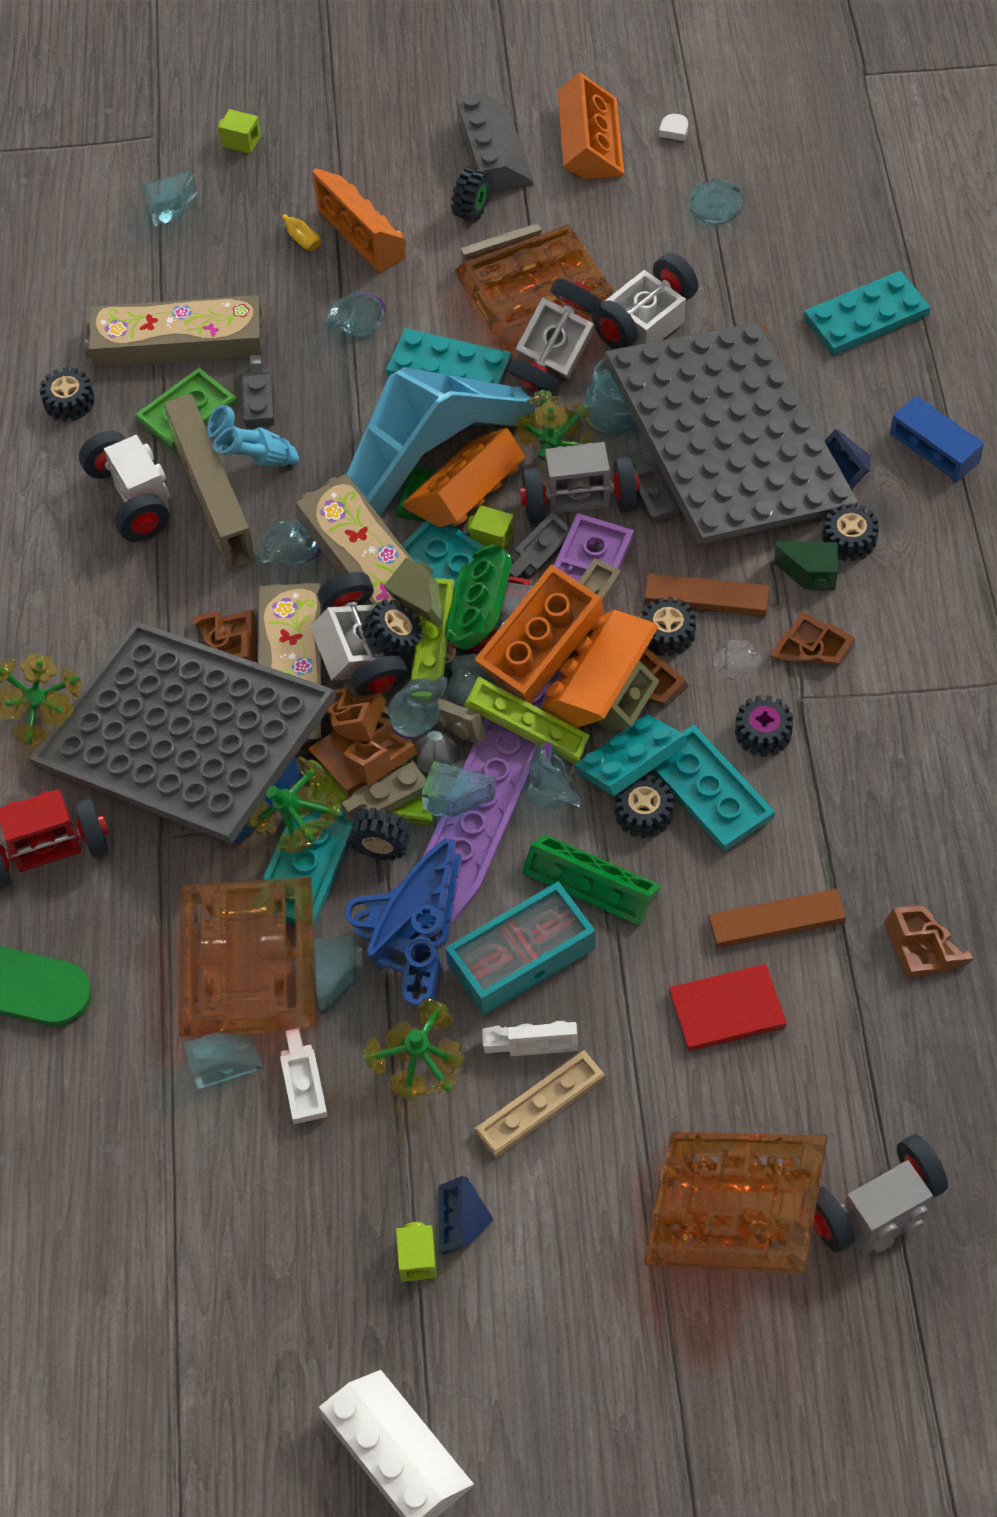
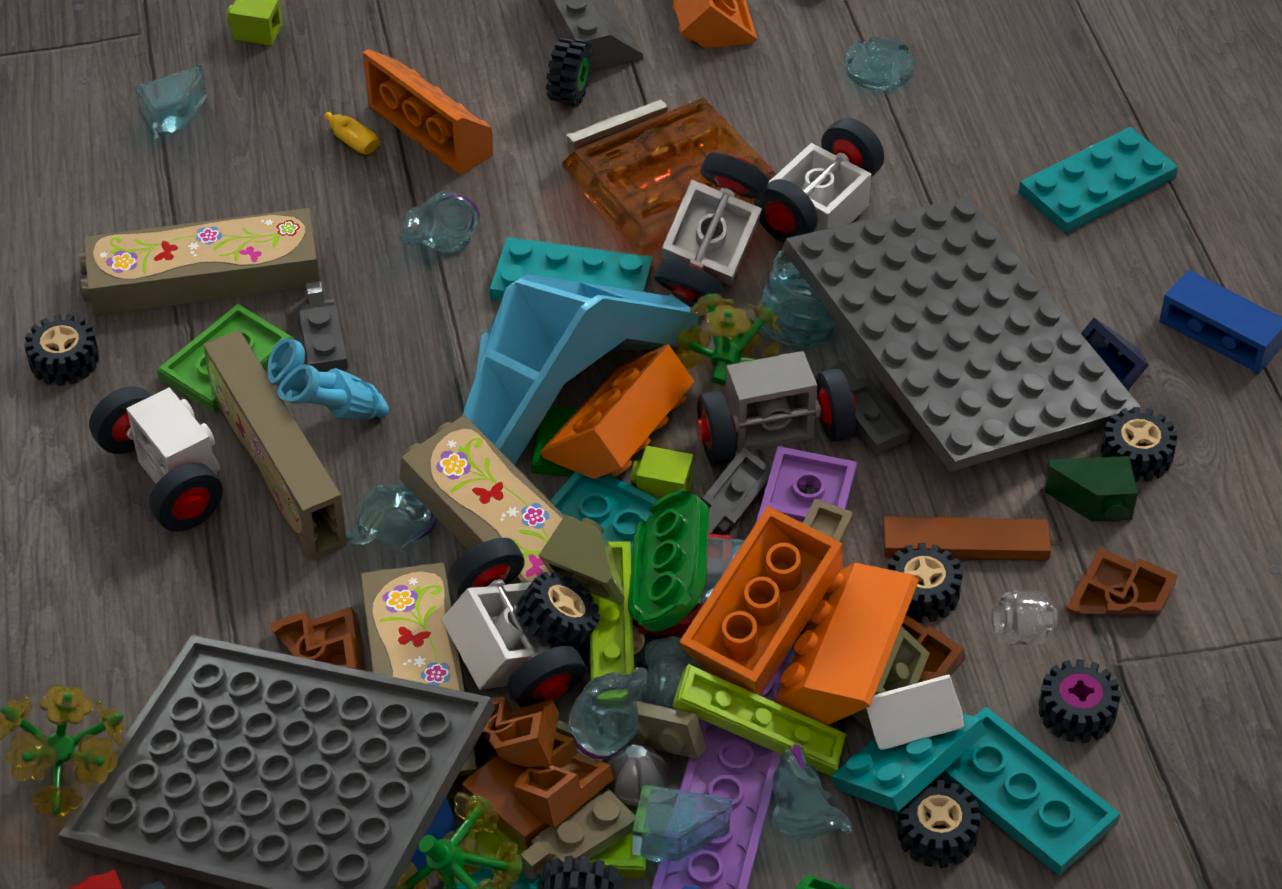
camera: 10 degrees left, 10 degrees down
(637, 725) = (915, 712): none -> white slope

